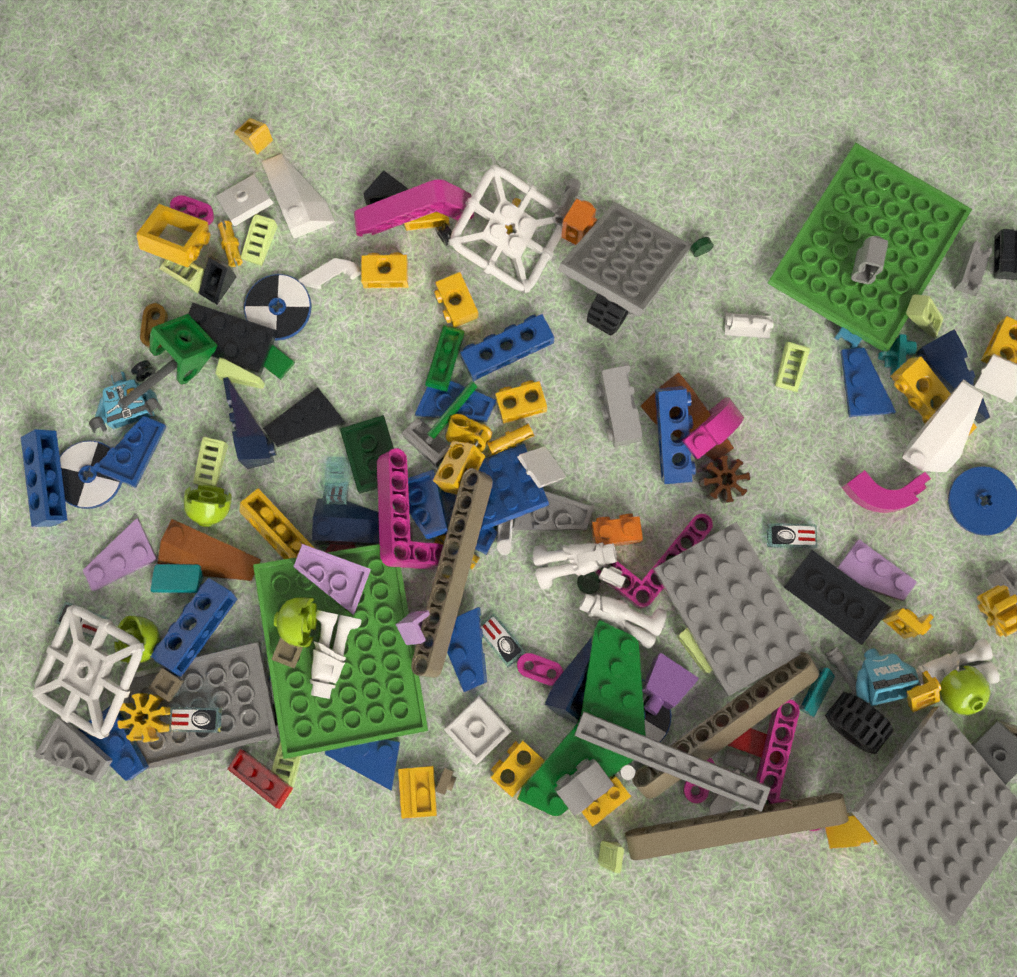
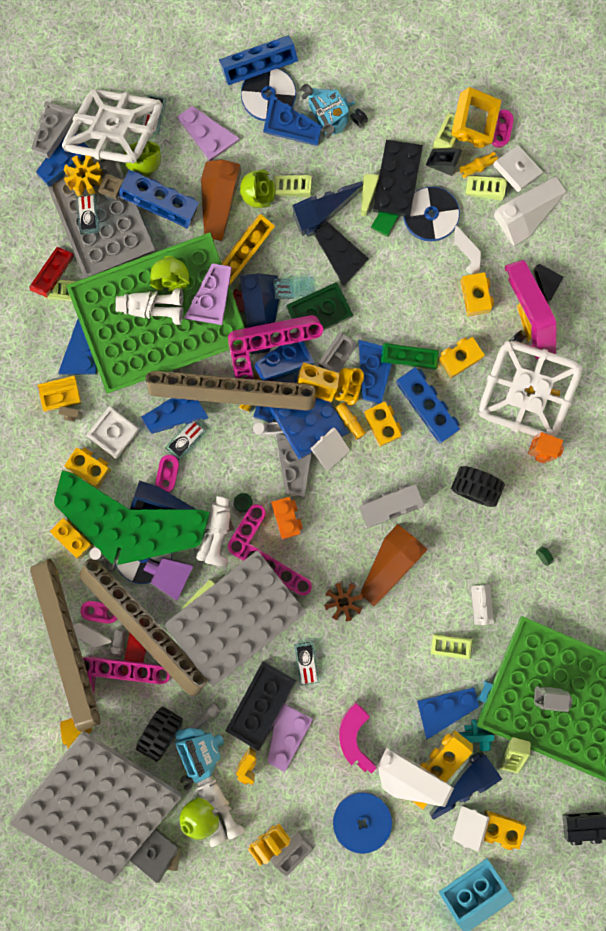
camera: 85 degrees right, 5 degrees up
(147, 384) = (352, 128): dark grey bar -> none
(148, 321) = (397, 116): pearl gold plate -> none
(176, 578) = (195, 178): teal slope -> none
(187, 354) = (374, 147): green hose -> none
(254, 134) = (577, 165): yellow slope -> none
(286, 653) = (143, 271): dark tan plate -> none
(411, 627) = (182, 365): lavender panel -> none
(453, 408) = (366, 369): green piece -> none
(571, 190) = (576, 438): light grey bar -> none
(582, 558) = (256, 492): white piece -> none
(583, 786) = (77, 518): light grey brick -> none
(611, 856) = (31, 549): yellowish green slope -> none
(612, 576) = (246, 518): white plate -> none
(625, 258) = (517, 489): light grey plate -> none
(665, 400) = (344, 557): blue brick -> none
(672, 761) = (105, 585): light grey plate -> none
(719, 426) = (384, 588): dark pink arch -> none
(817, 692) = (182, 699): teal slope -> none
(924, 695) = (188, 785): yellow bracket -> none
(973, 269) = (565, 794): light grey hinge -> none

